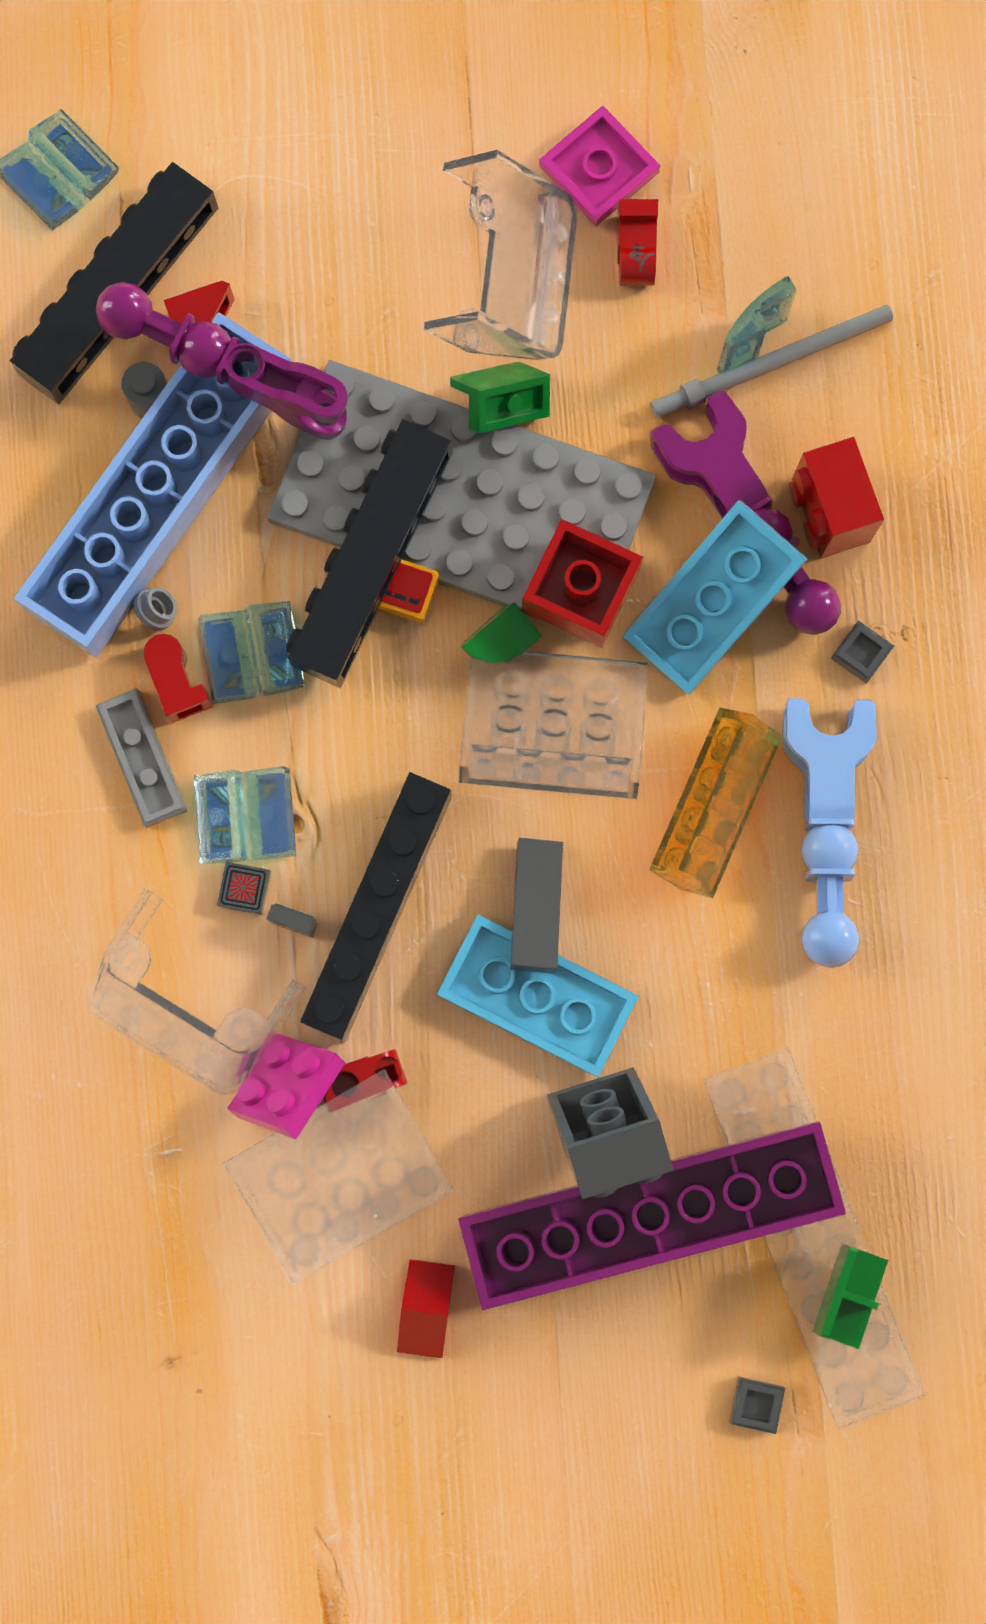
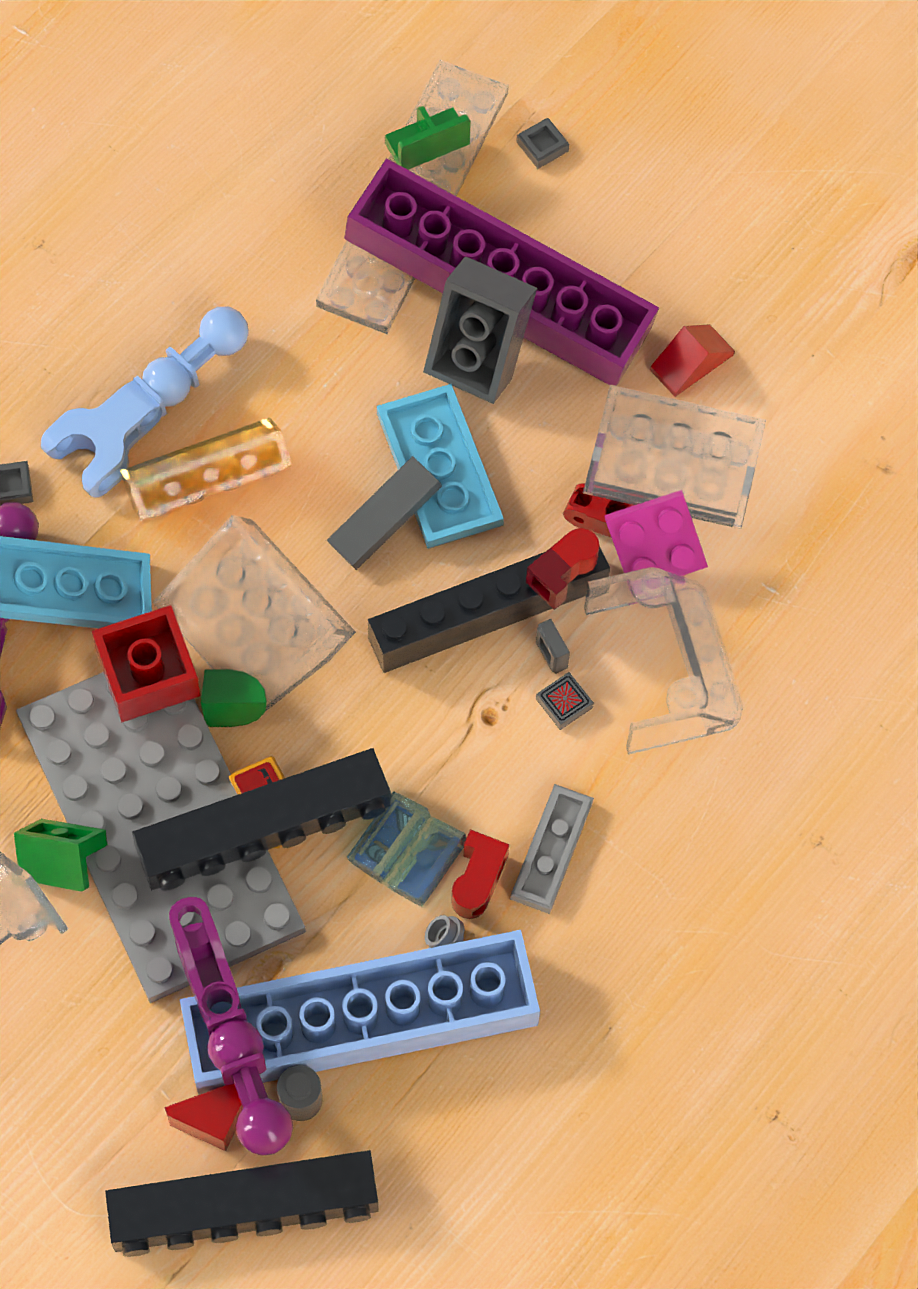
camera: 140 degrees left, 15 degrees down
(244, 815) = (518, 746): clear light blue slope -> none
(329, 993) = (561, 563): none -> leg

